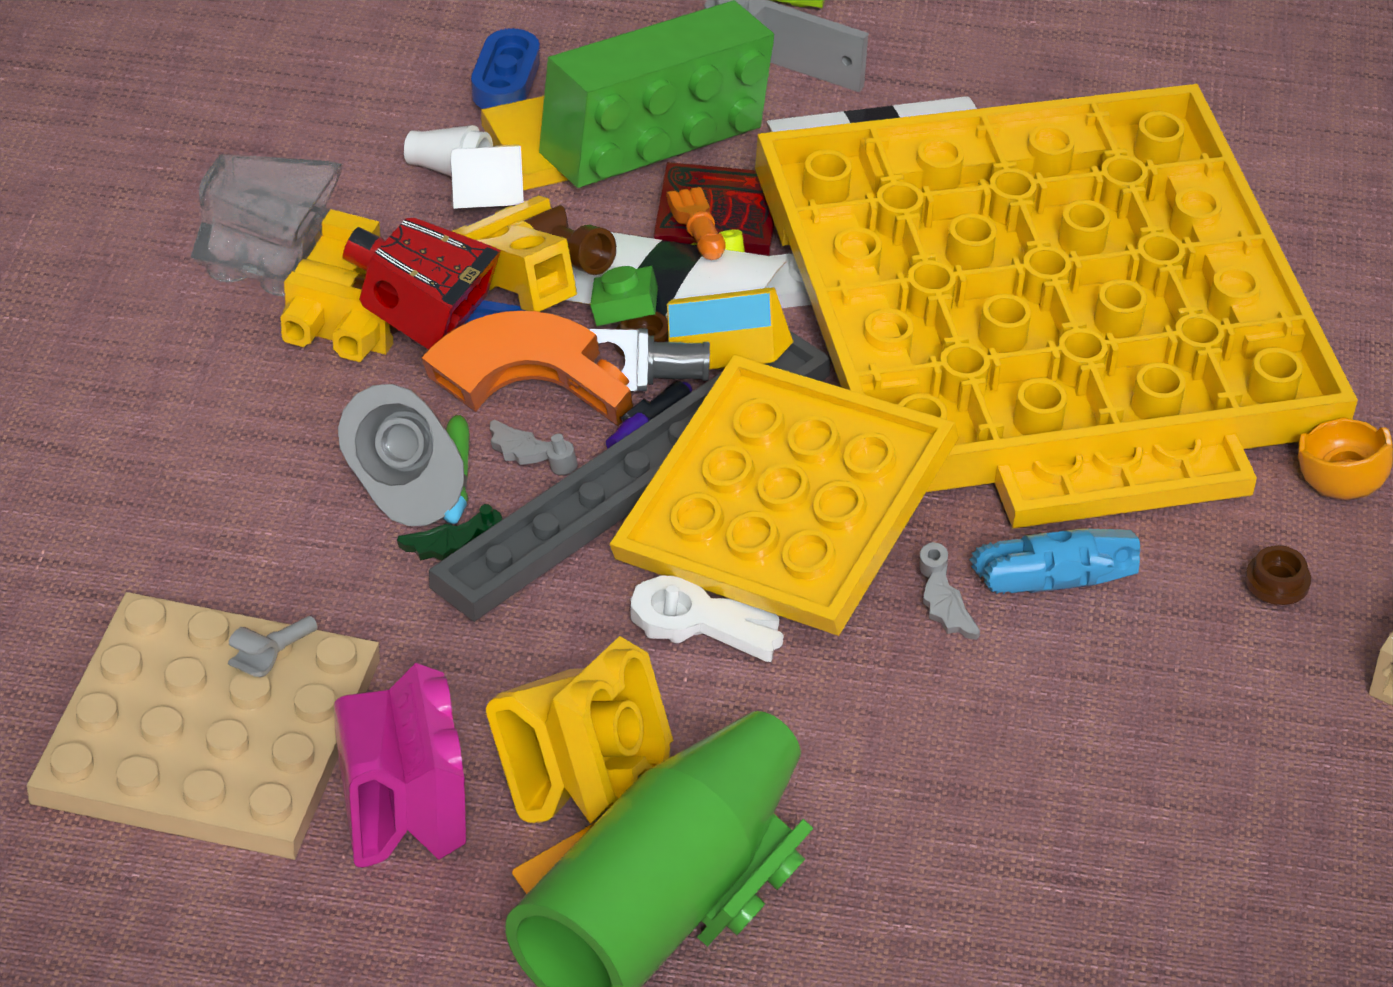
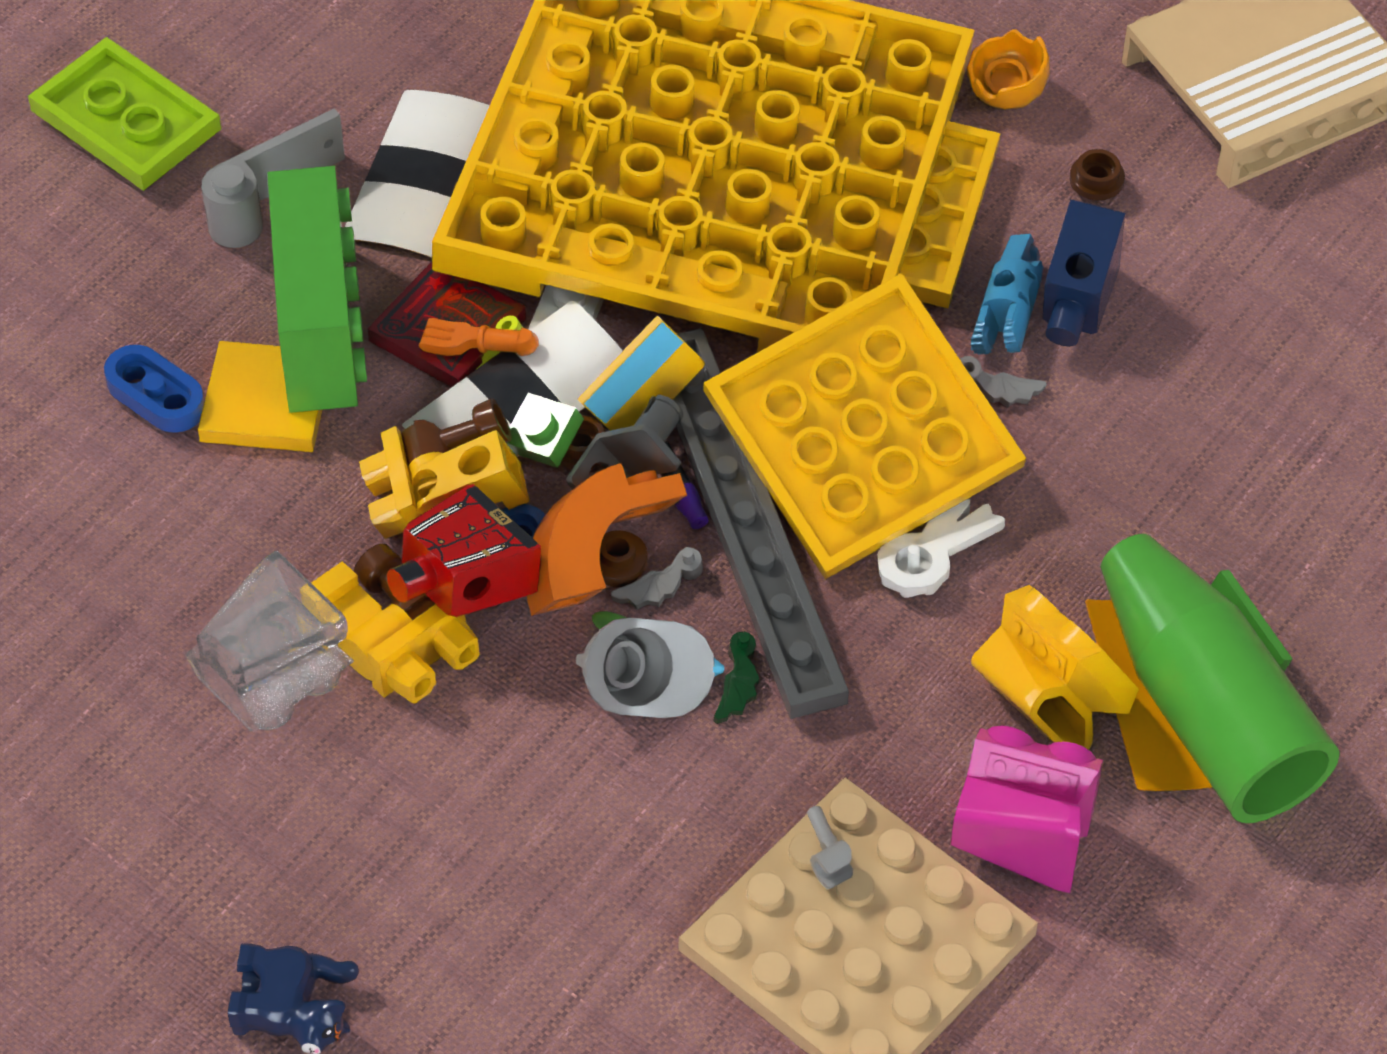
camera: 60 degrees left, 10 degrees up
(433, 147) = (244, 476): white cone -> none
(486, 176) = (325, 459): white panel -> none
(532, 407) = (624, 569): none -> reddish brown plate
(1115, 590) = (1082, 272): none -> dark blue torso

